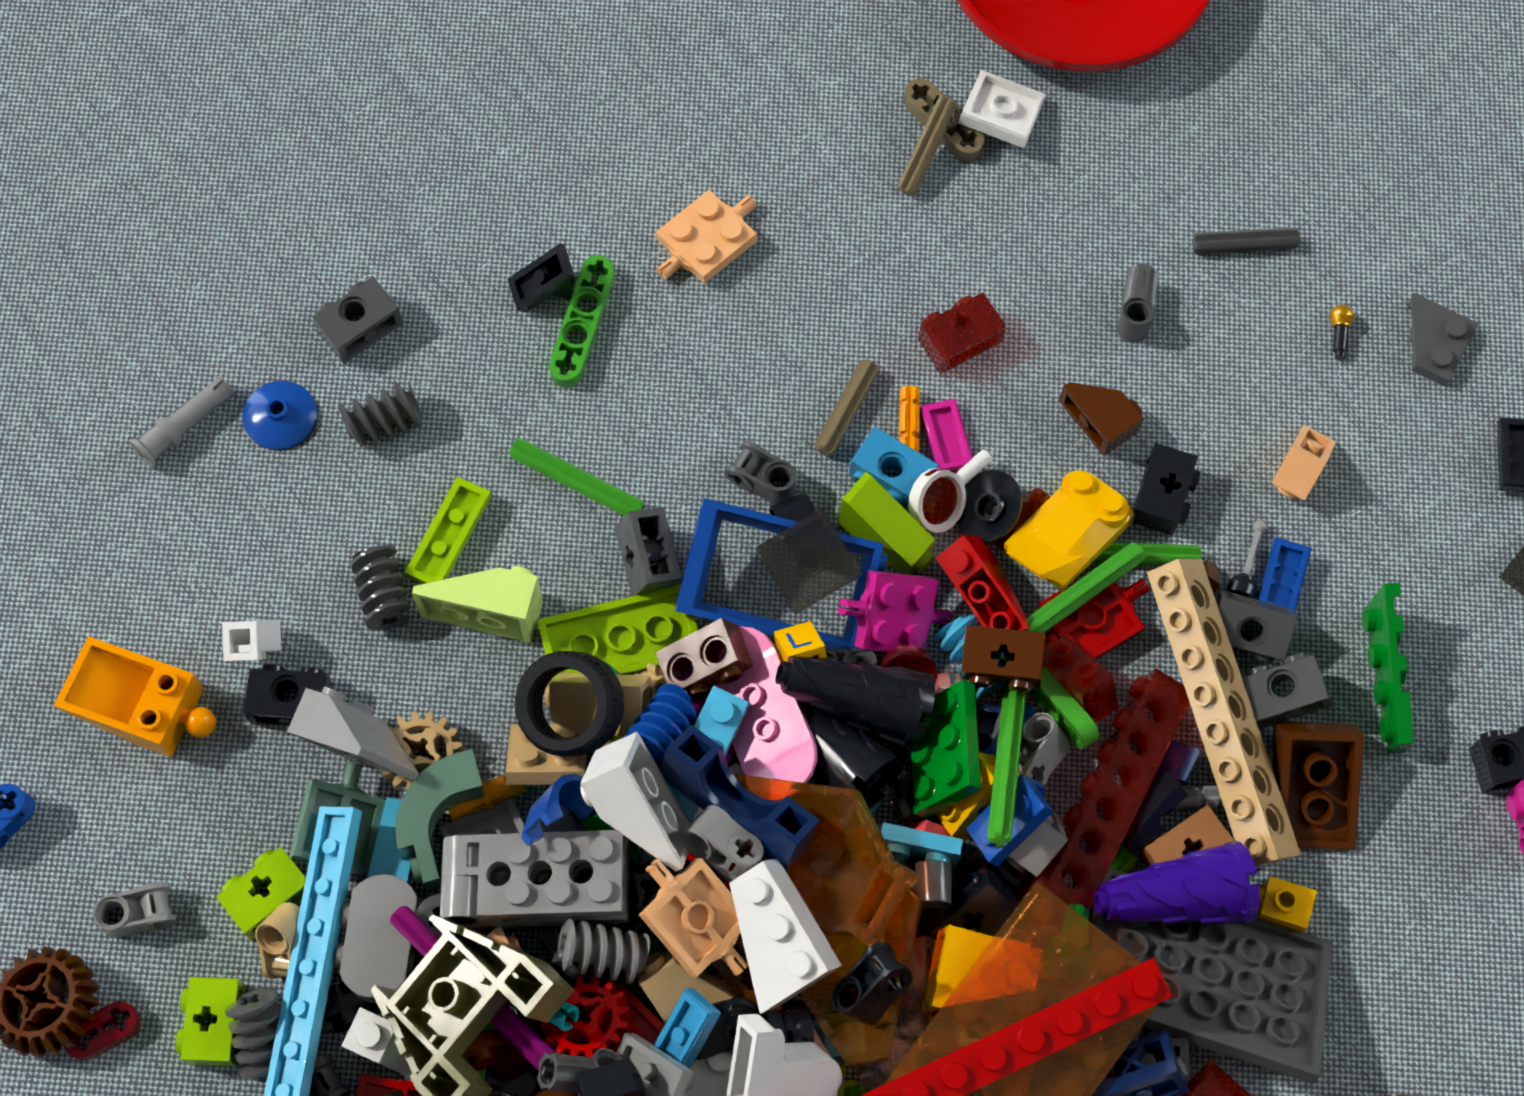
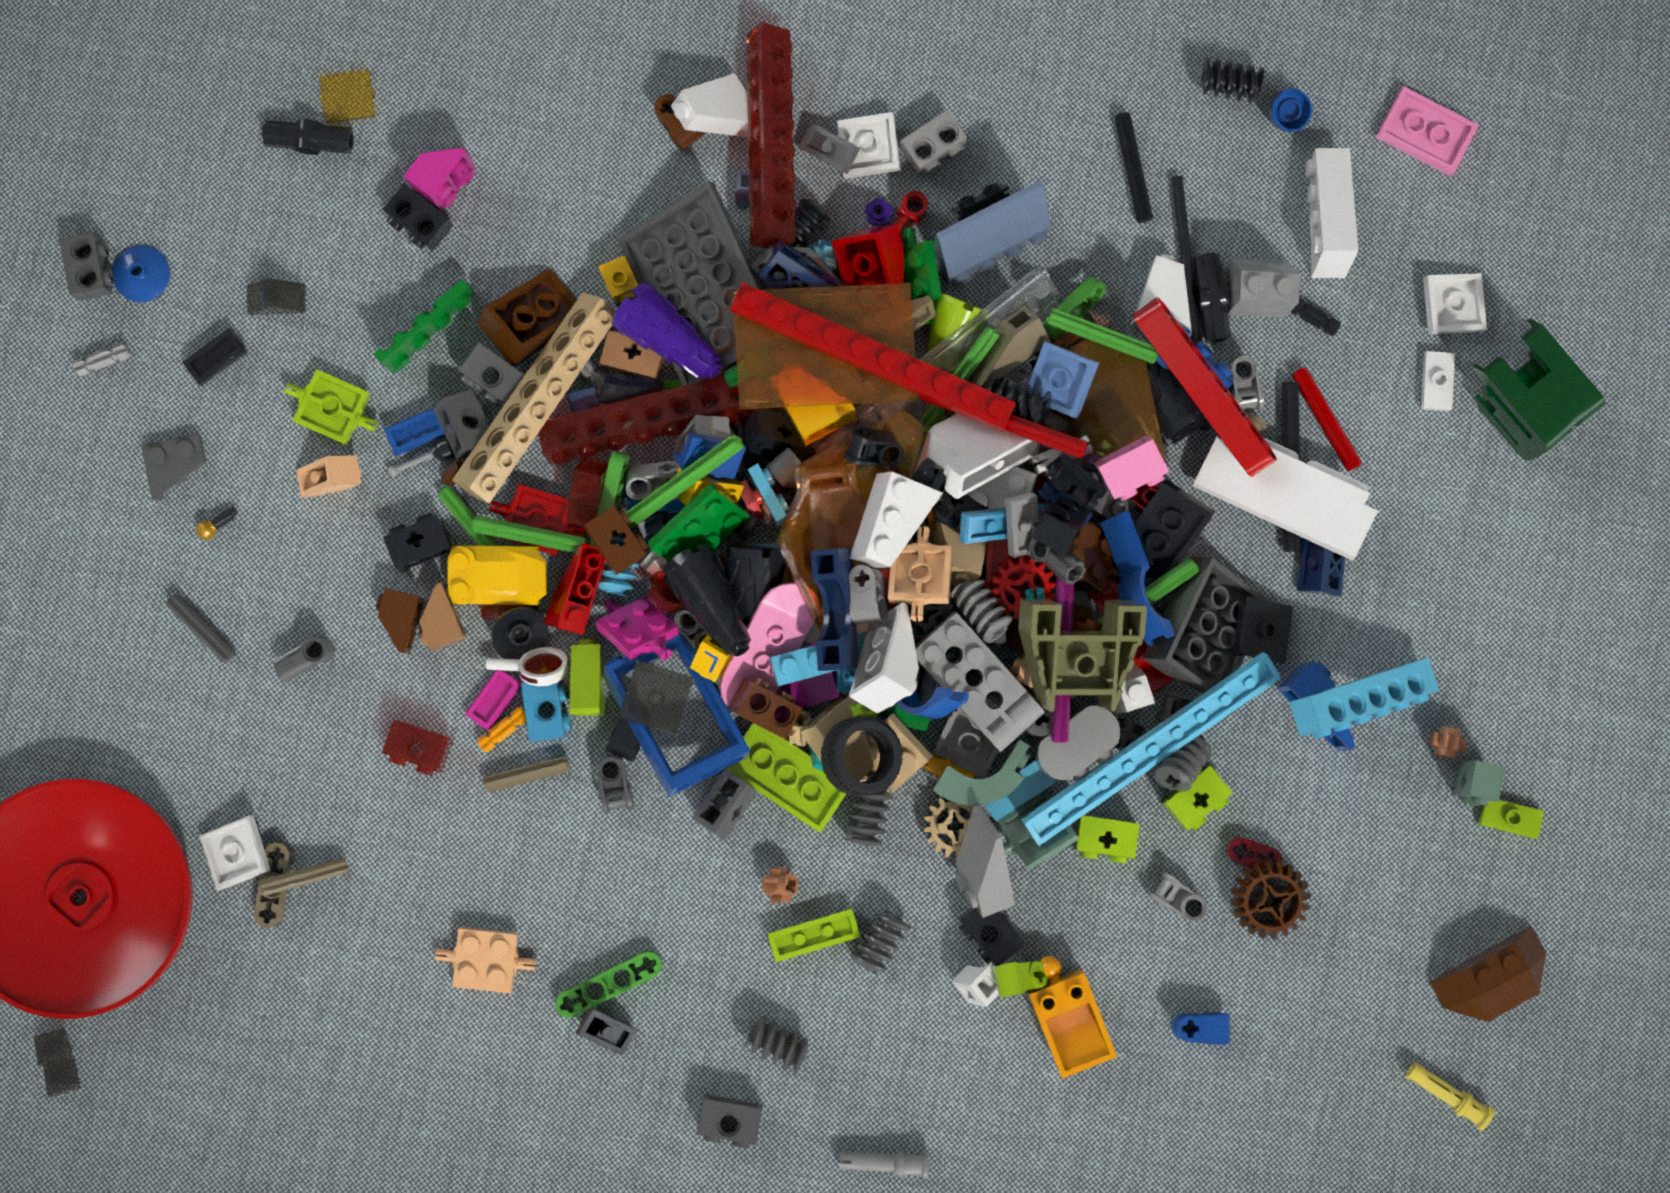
camera: 130 degrees left, 15 degrees up
(216, 677) = (1019, 977): none -> lime piece
(276, 939) = (1125, 801): tan piece -> none
(283, 429) = (823, 1095): blue dish -> none
(485, 601) = (832, 863): yellowish green slope -> none
(500, 673) = (869, 818): none -> dark grey piece
(524, 541) = (780, 885): none -> nougat gear
(574, 477) = (713, 893): bright green axle -> none
(664, 719) = (825, 695): blue piece -> none
(1066, 447) = (440, 621): none -> medium nougat slope
(1375, 519) = (331, 407): none -> lime plate

